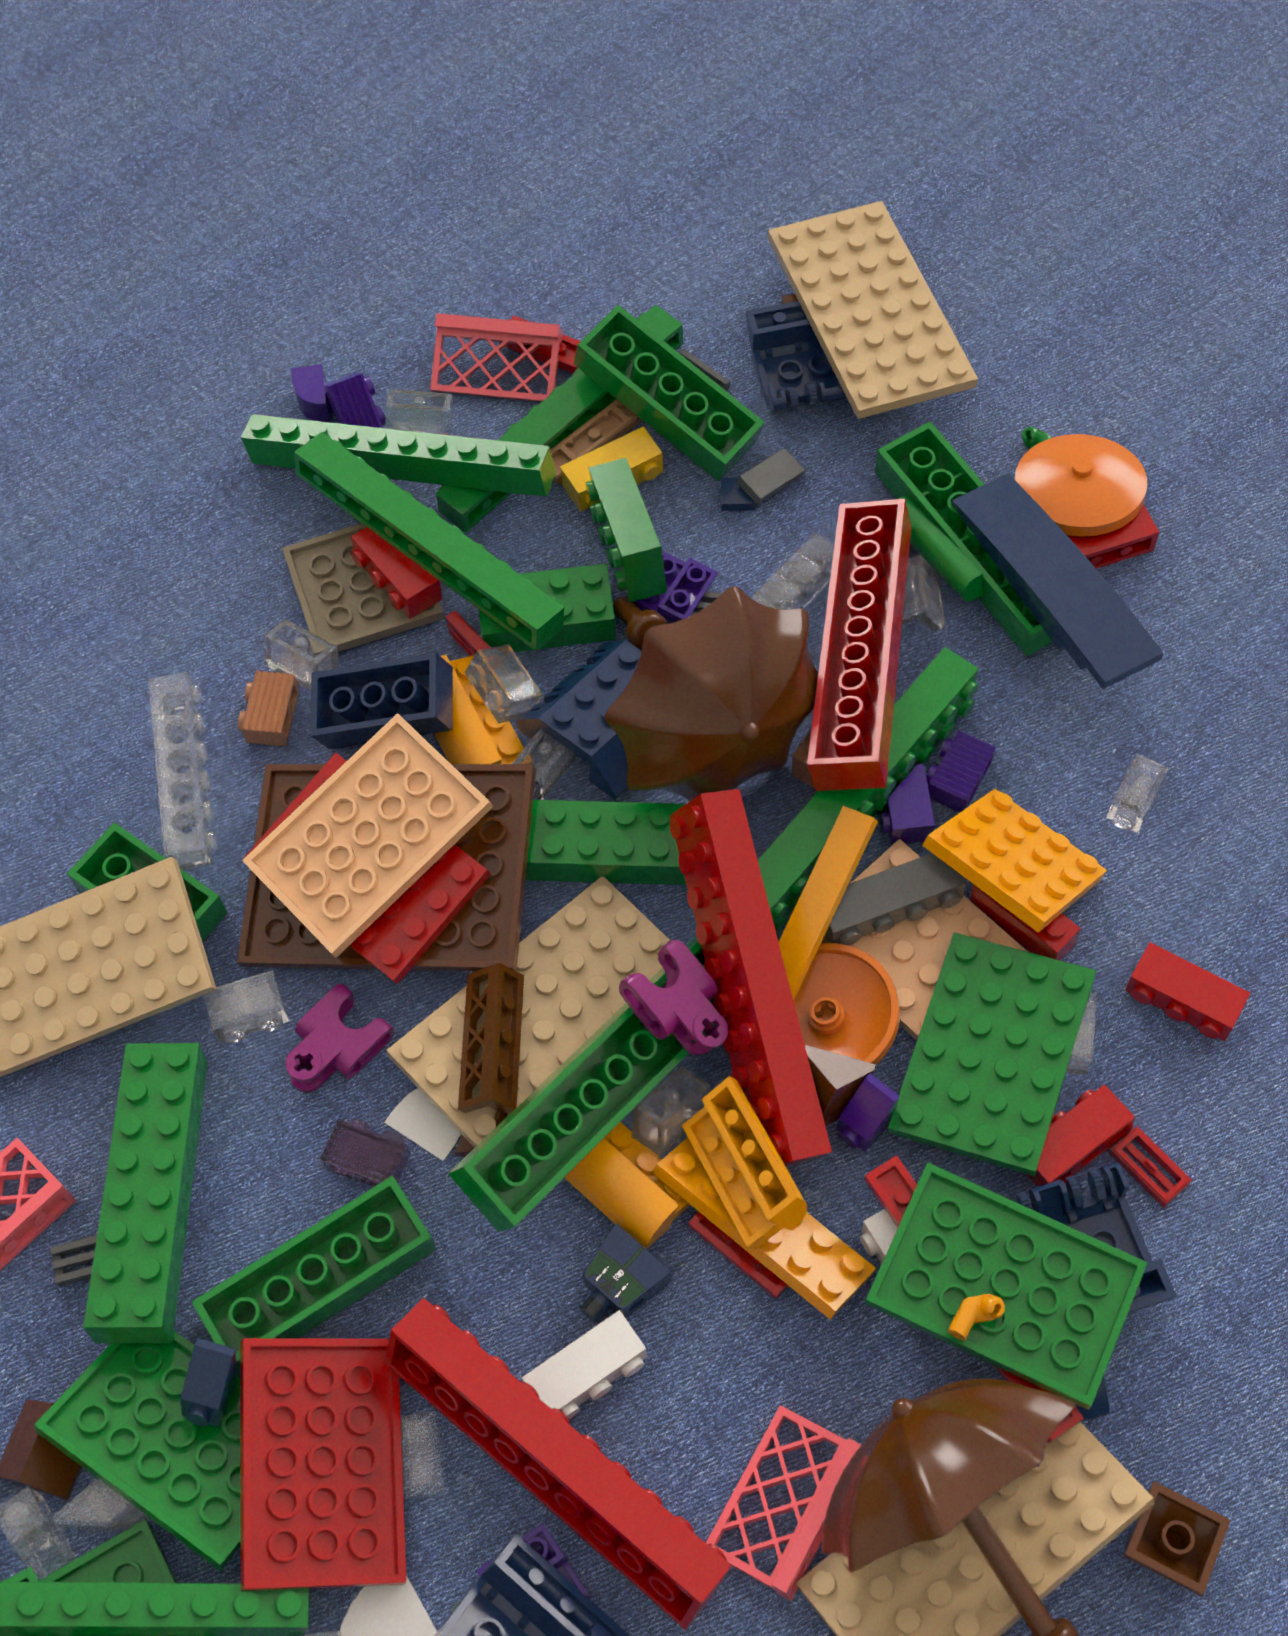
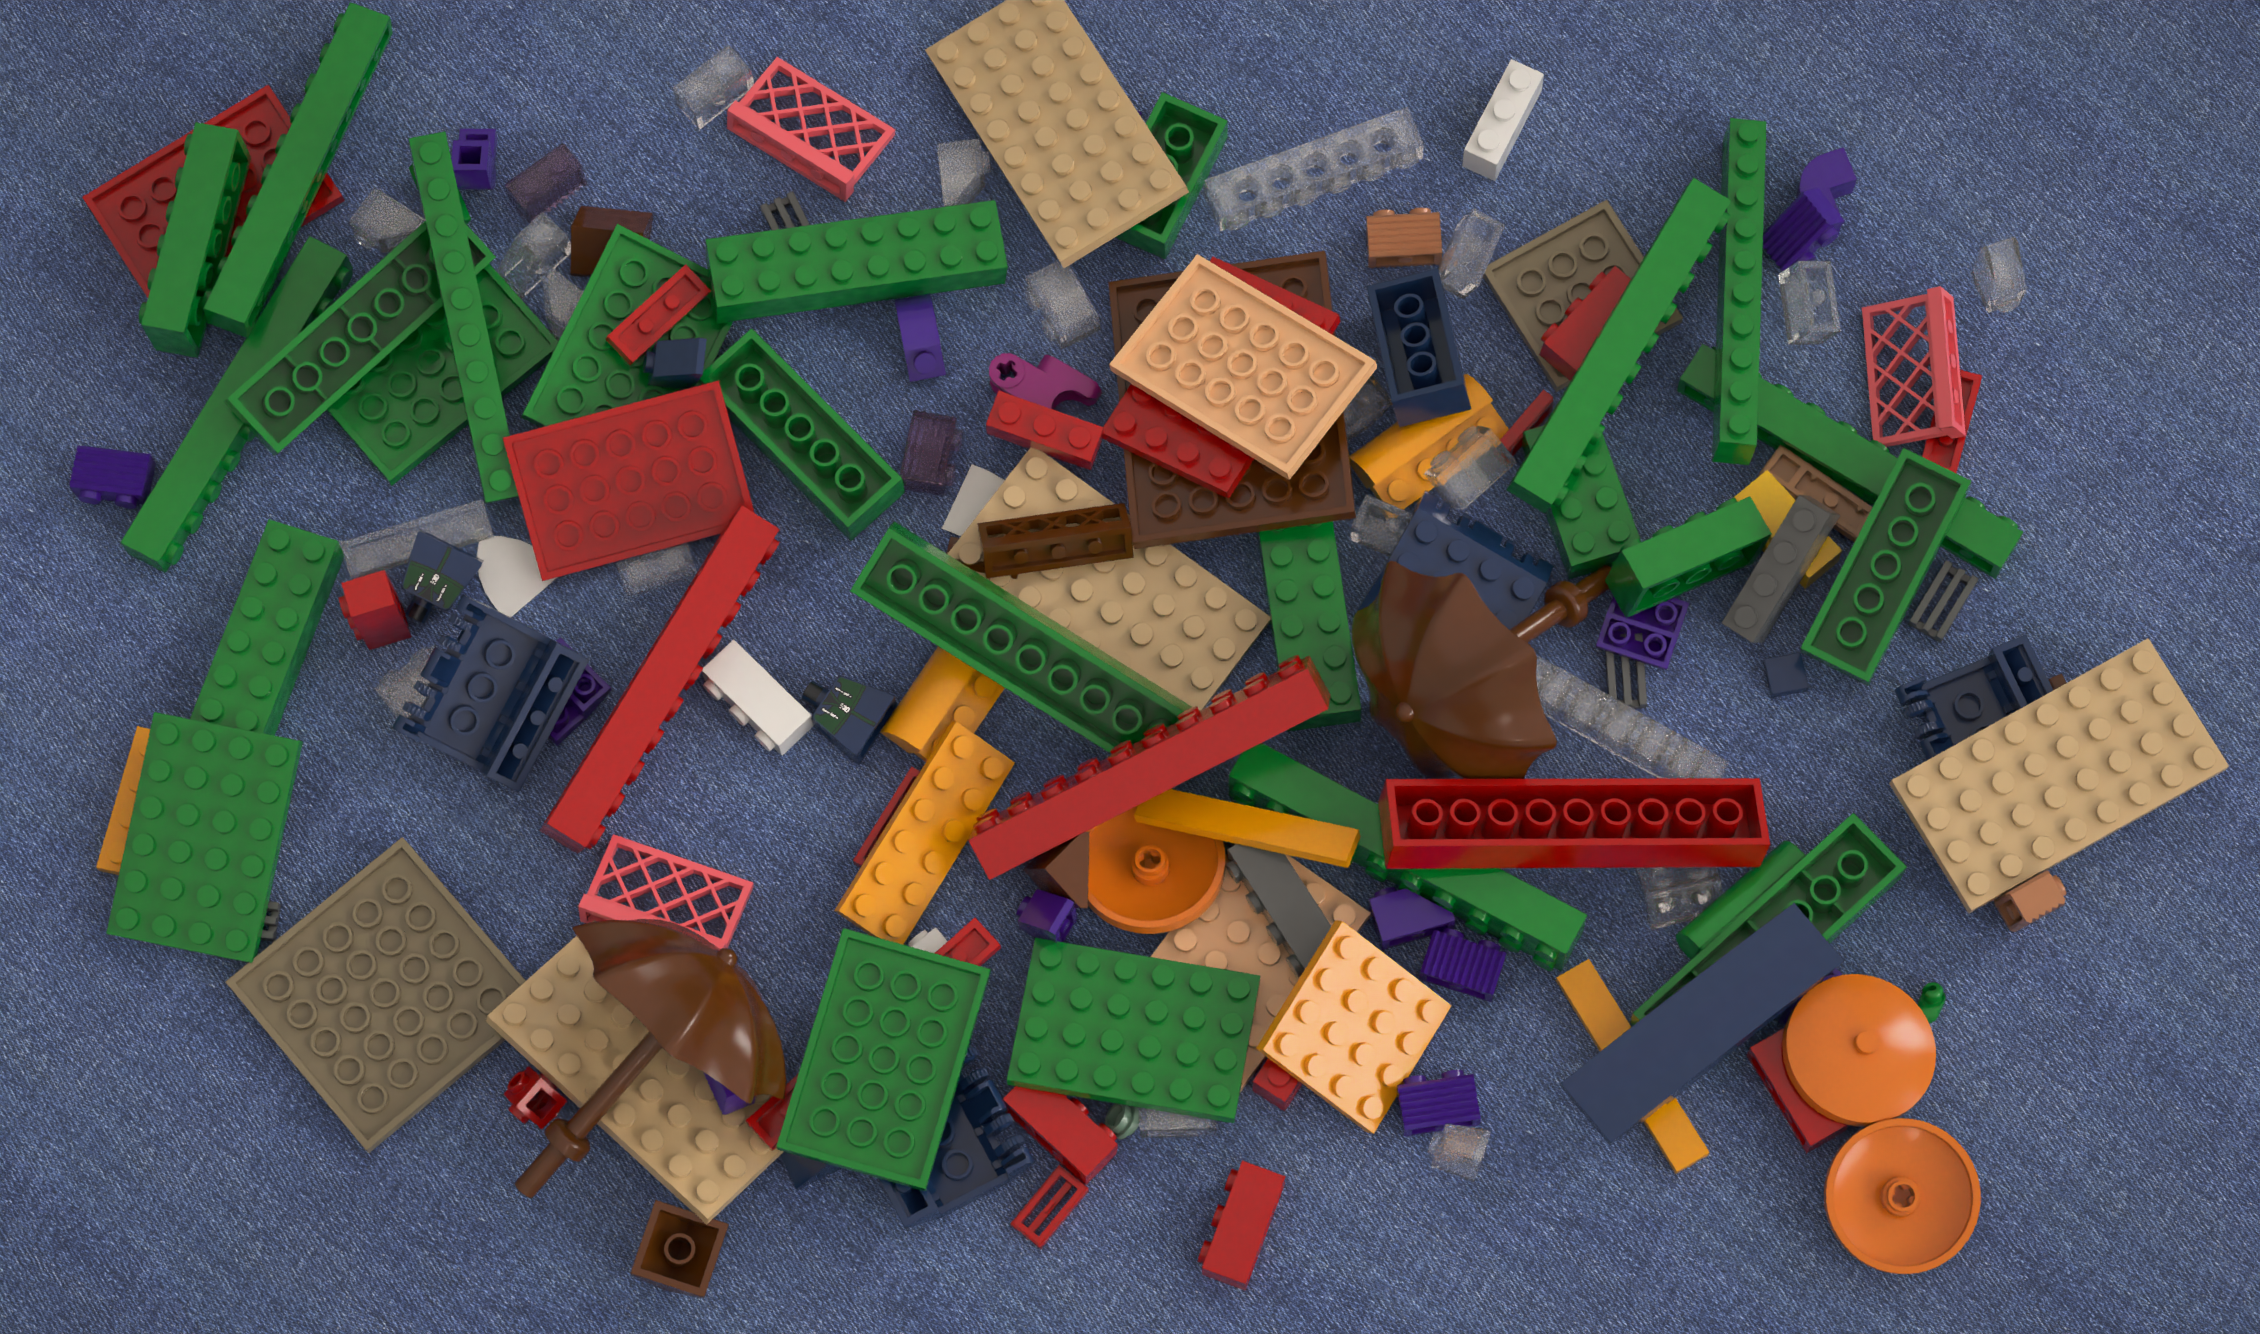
camera: 80 degrees right, 10 degrees up
(82, 1079) = (962, 170): none -> clear slope
(148, 1398) = (658, 315): none -> red plate
(183, 612) = (1503, 120): none -> white brick
(242, 1139) = (920, 337): none -> dark purple brick
(377, 1032) = (1044, 430): none -> red brick
(434, 286) = (2000, 275): none -> clear slope
(653, 464) = (1780, 569): none -> dark grey brick
(666, 1108) = (1017, 727): clear brick -> none
(682, 1005) = (1108, 704): magenta piece -> none
(744, 1165) = (962, 798): light orange brick -> none
(770, 476) = (1812, 706): dark grey tile -> none
(975, 340) = (2031, 901): none -> nougat brick
(975, 1310) = (846, 1027): light orange arm -> none
(1037, 670) = (1605, 1024): none -> light orange tile
(1076, 1082) = (1122, 1120): none -> sand green plate
(1087, 810) = (1433, 1103): none -> dark purple brick
(1207, 479) = (1902, 1196): none -> orange dish

